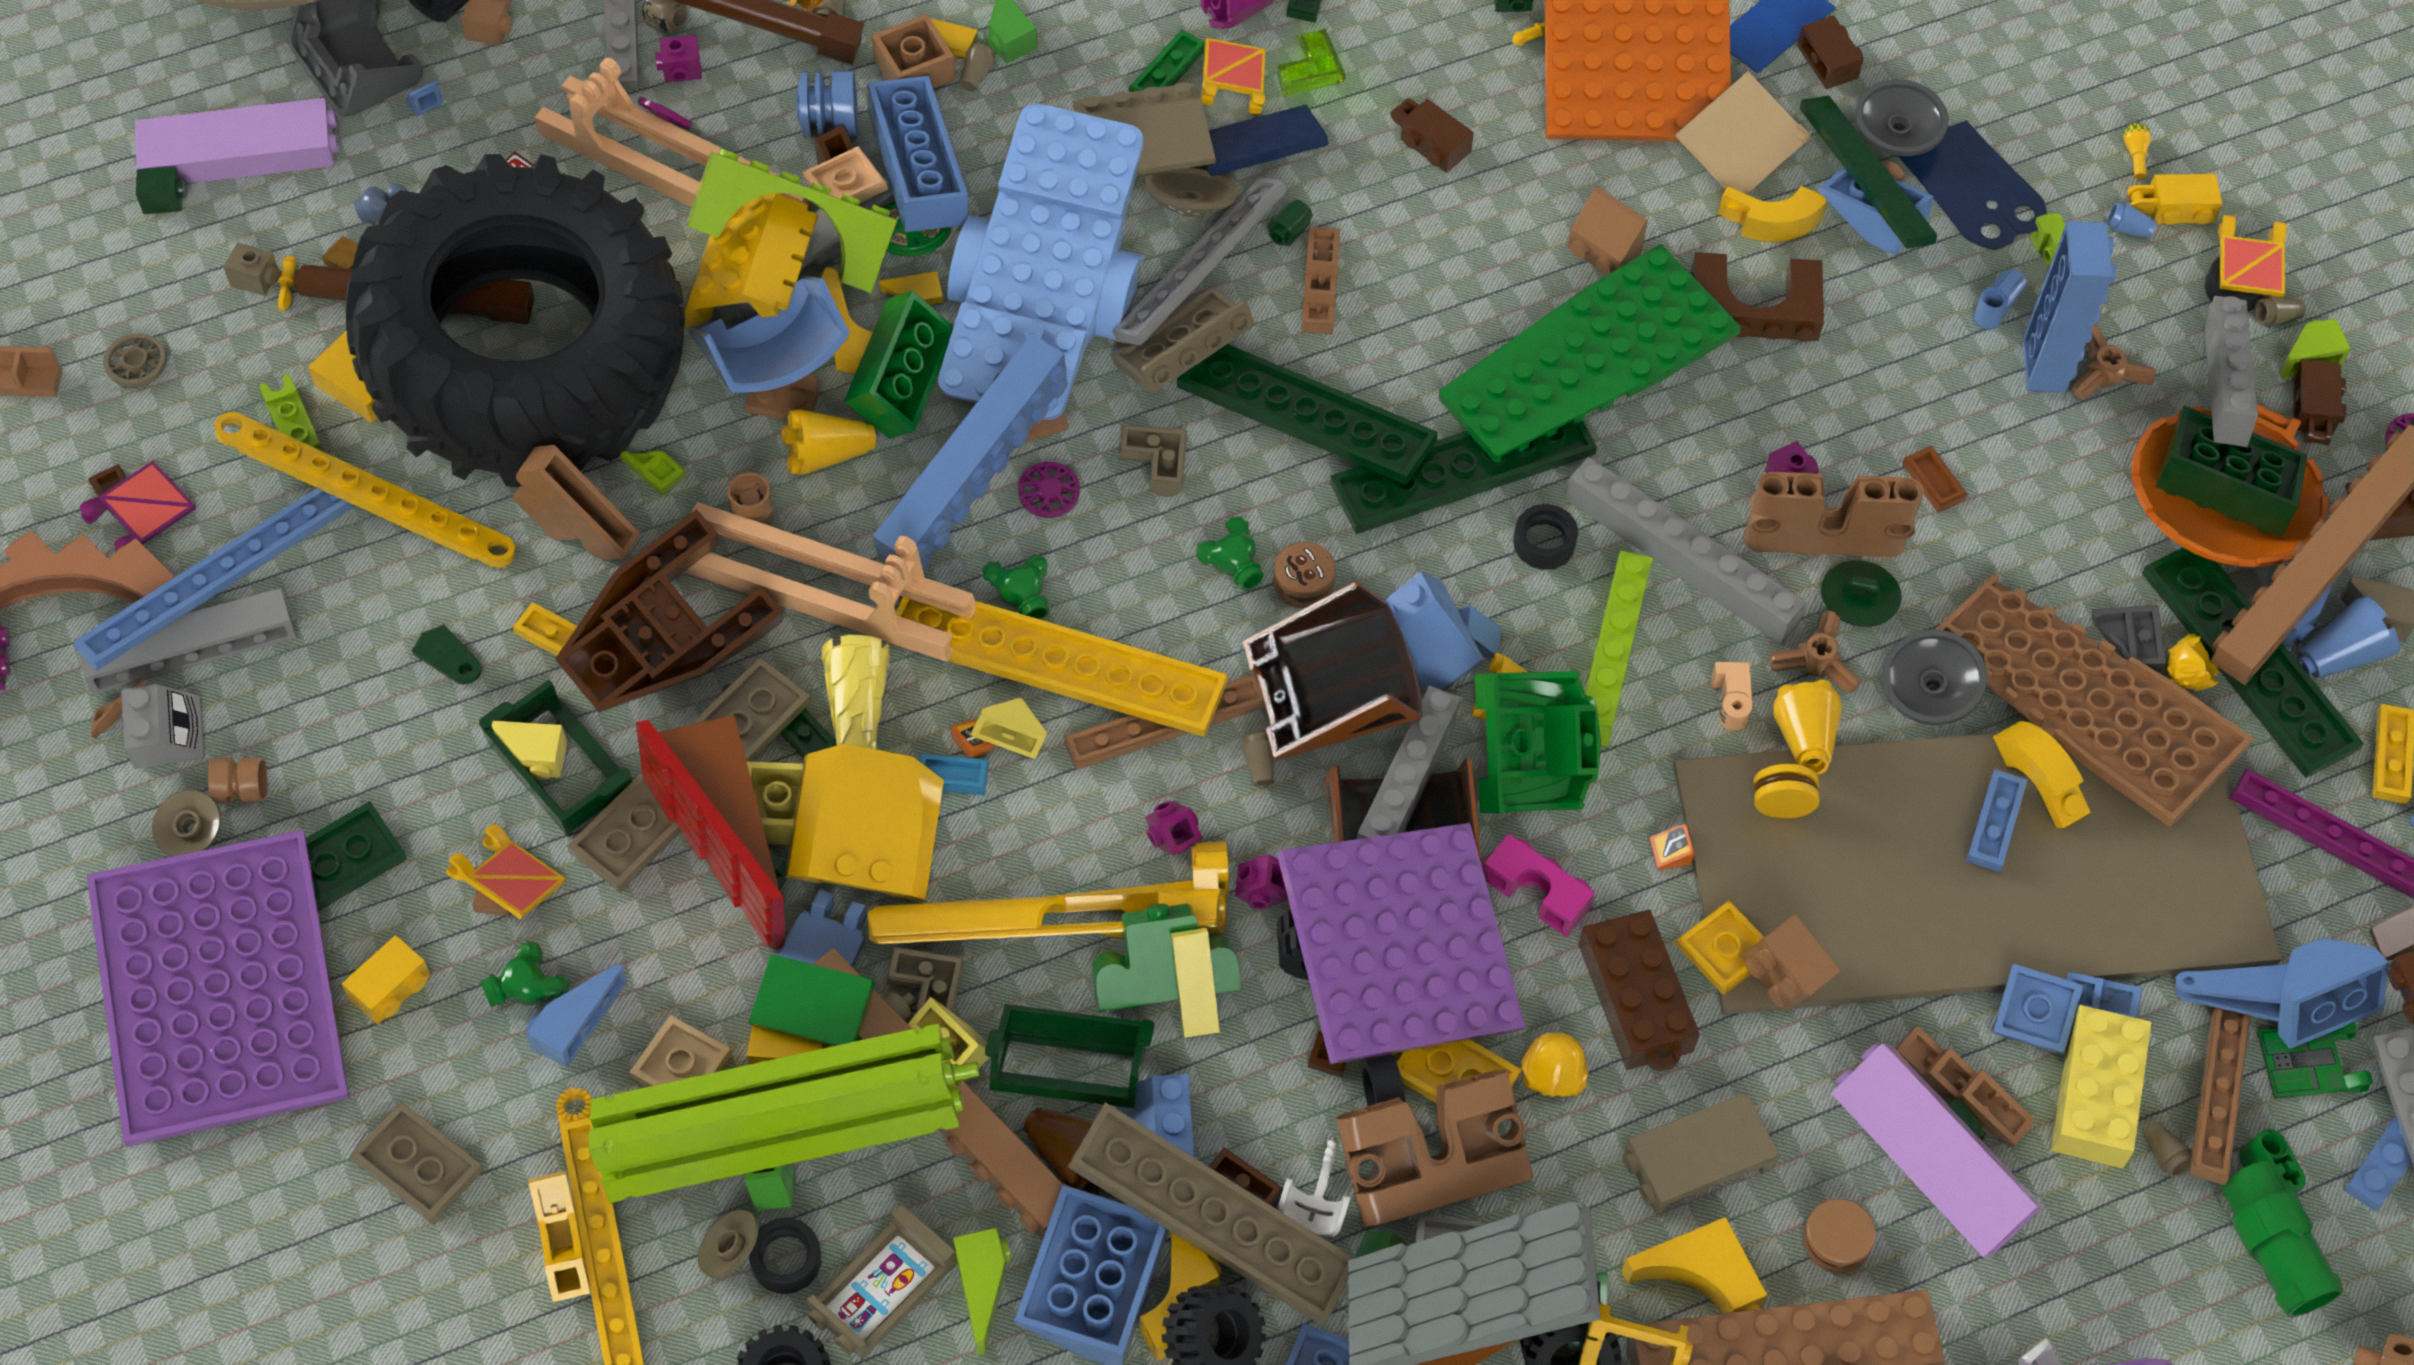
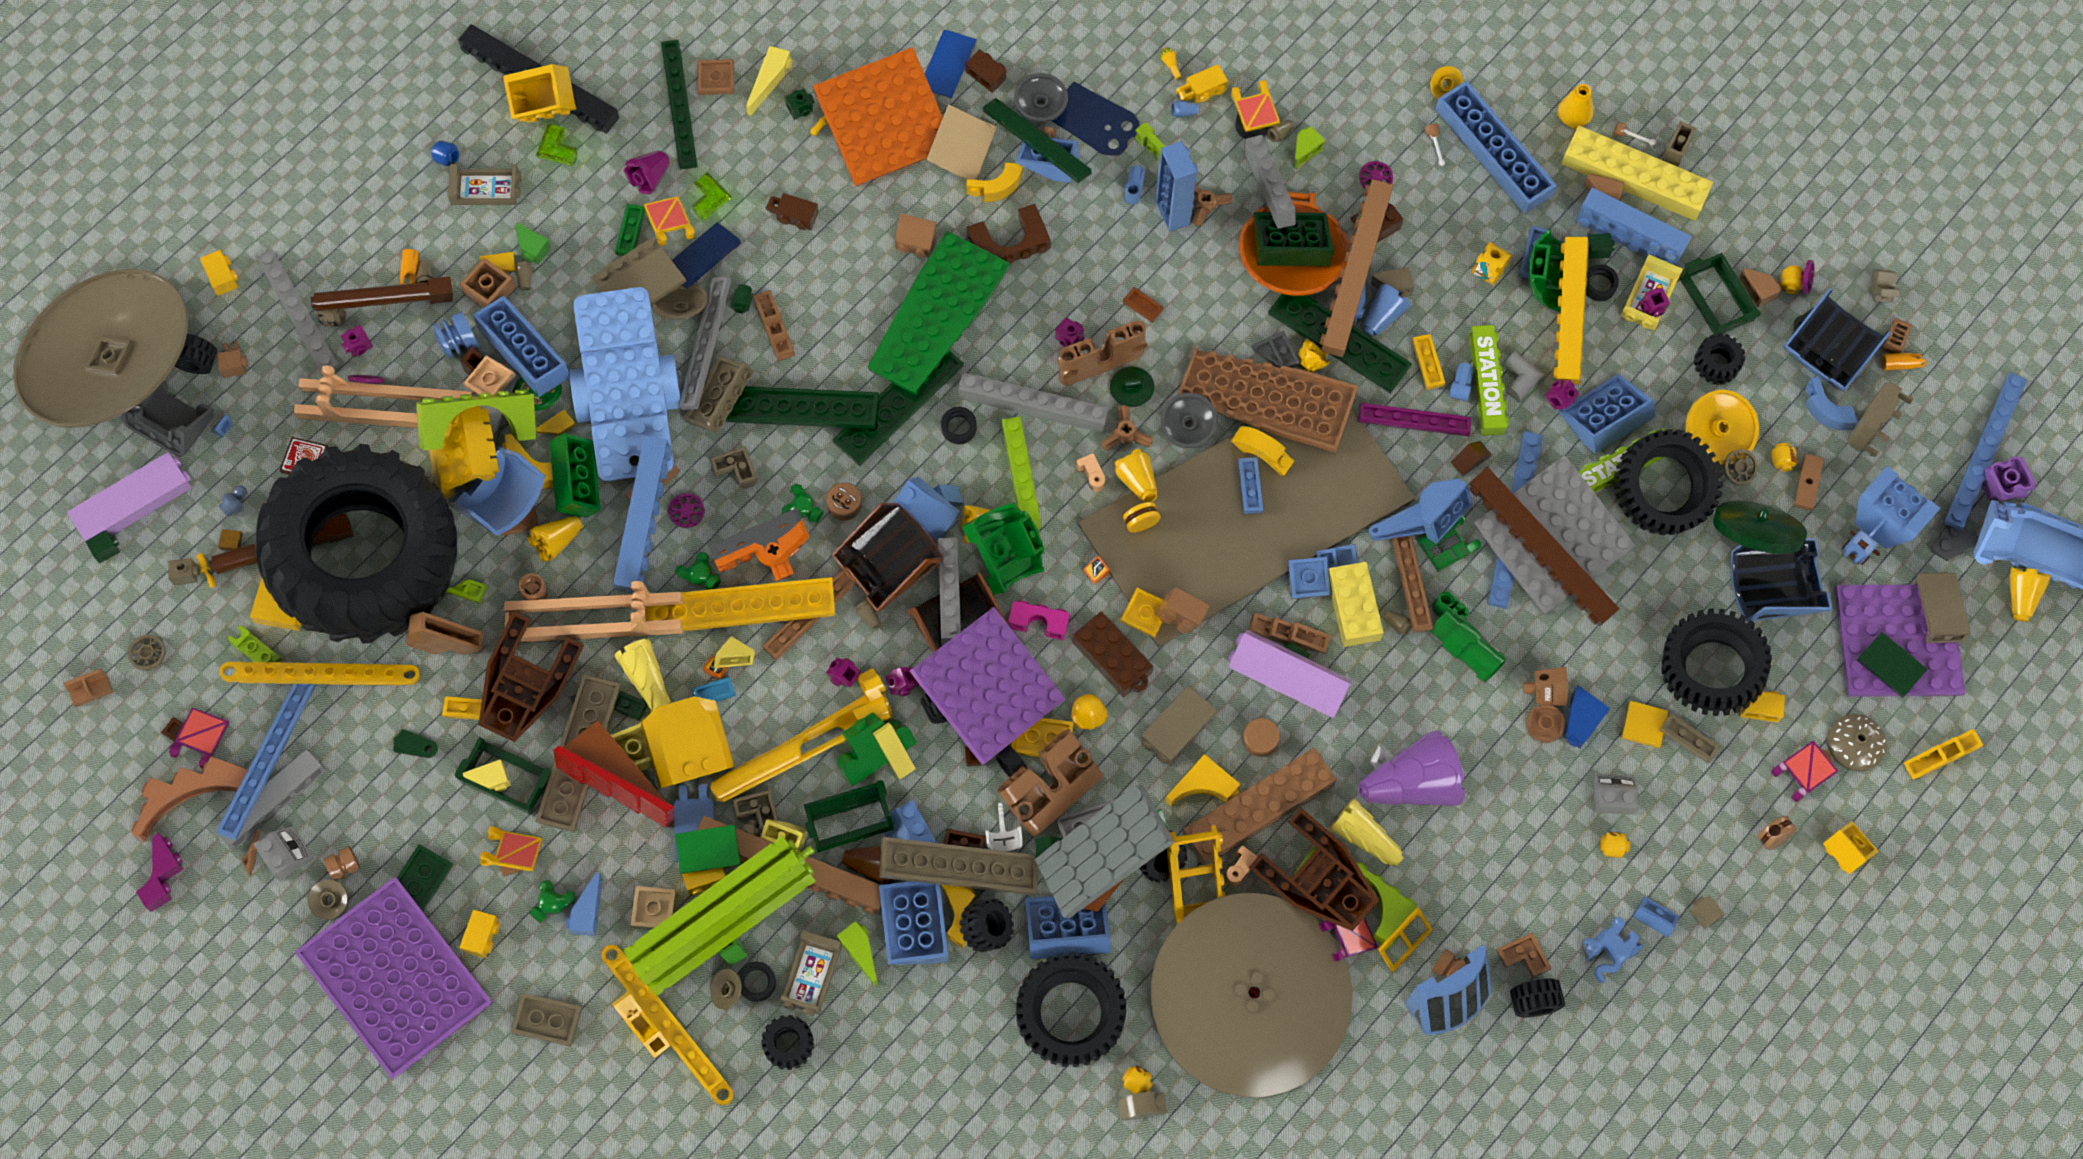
camera: 25 degrees left, 10 degrees up
(1155, 577) = (783, 532): none -> piece
(2318, 400) = (1319, 176): reddish brown brick -> none

